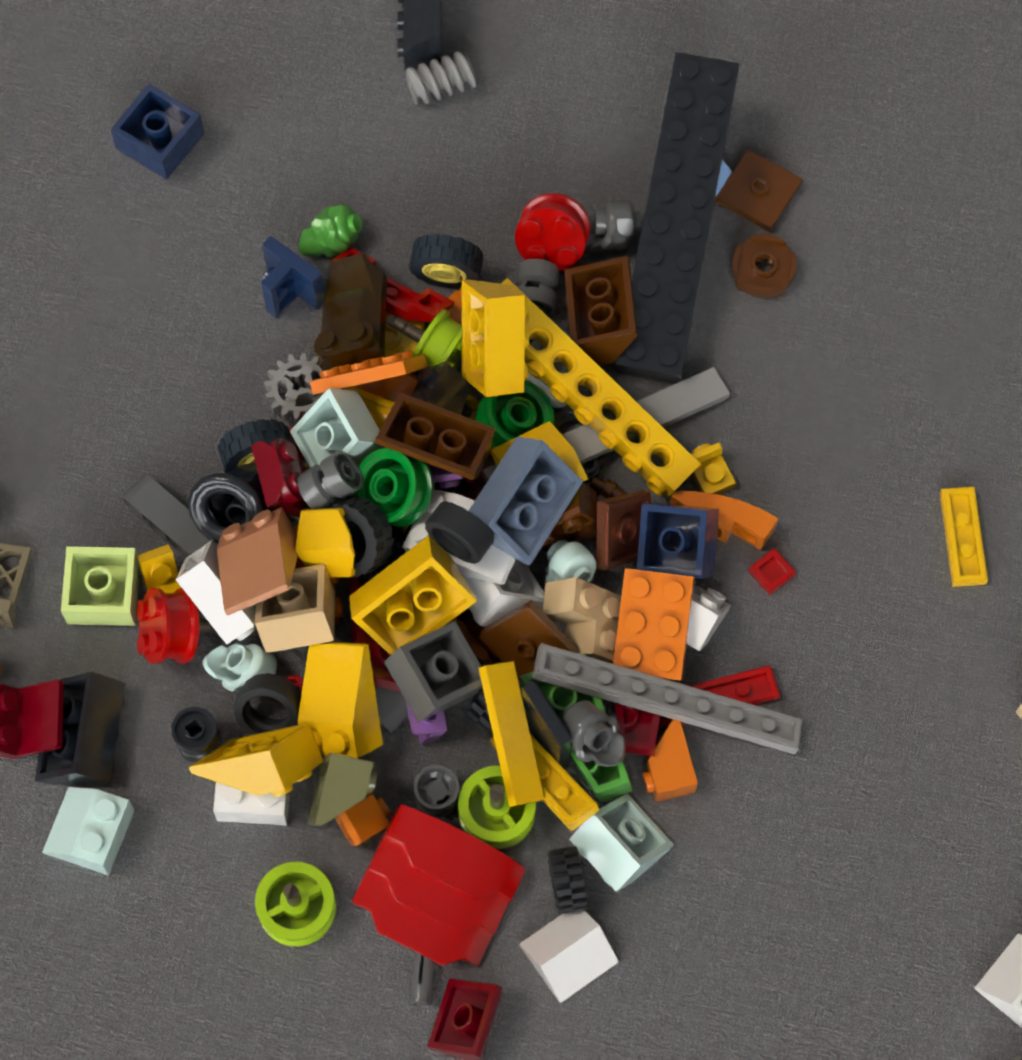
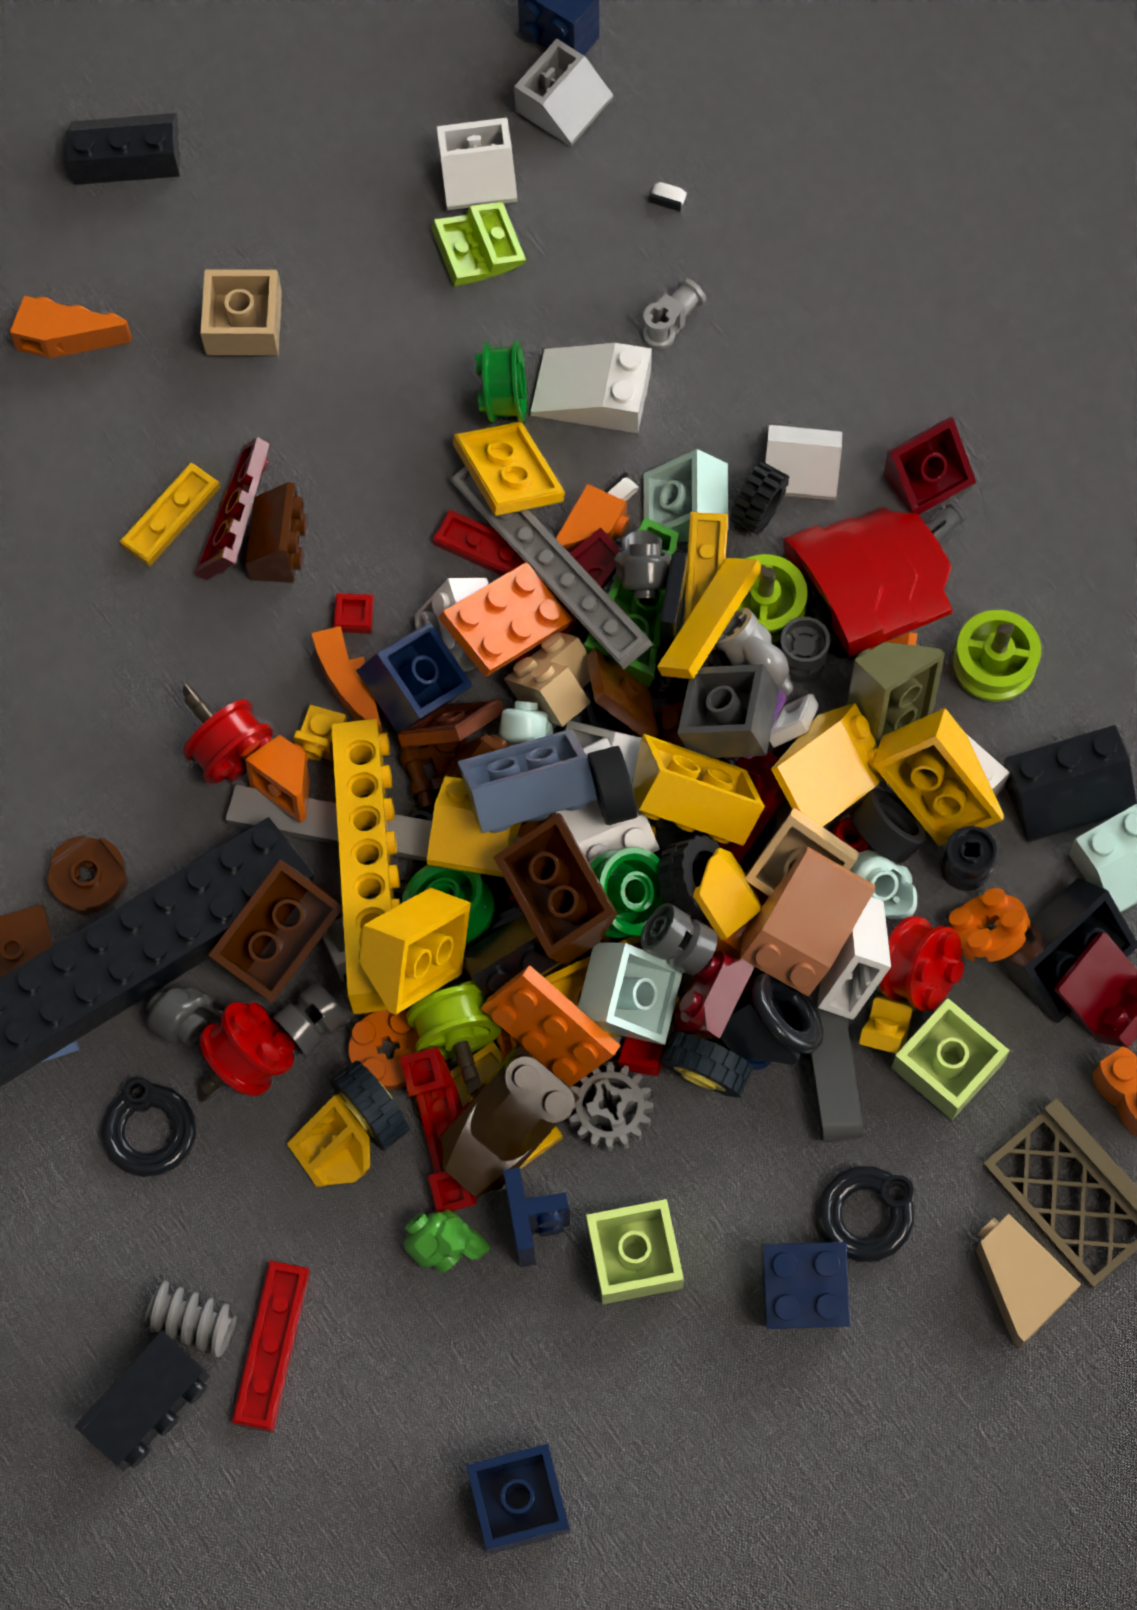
camera: 135 degrees left, 0 degrees up
(83, 375) = (805, 1285): none -> dark blue brick
(86, 481) = (881, 1182): none -> black piece
(161, 690) = (991, 908): none -> orange plate
(170, 854) = (1070, 783): none -> black slope
(207, 312) = (634, 1251): none -> yellowish green brick
(383, 108) = (271, 1346): none -> red tile
(395, 727) = (793, 720): none -> white tile
(454, 225) = (332, 1145): none -> yellow slope
(460, 743) = (749, 643): none -> light grey animal
(573, 185) = (124, 1107): none -> black piece
(677, 815) = (622, 488): none -> white piece
(700, 414) = (281, 775): none -> orange slope
(759, 403) = (223, 737): none -> red wheel
(765, 751) = (508, 468): none -> yellow tile
(770, 877) = (594, 385): none -> white slope
(770, 987) = (668, 315): none -> light grey connector
(831, 811) = (503, 381): none -> green wheel
(872, 570) = (276, 534): none -> reddish brown slope
(918, 561) = (233, 513): none -> dark red wing
(966, 926) = (478, 243): none -> lime slope

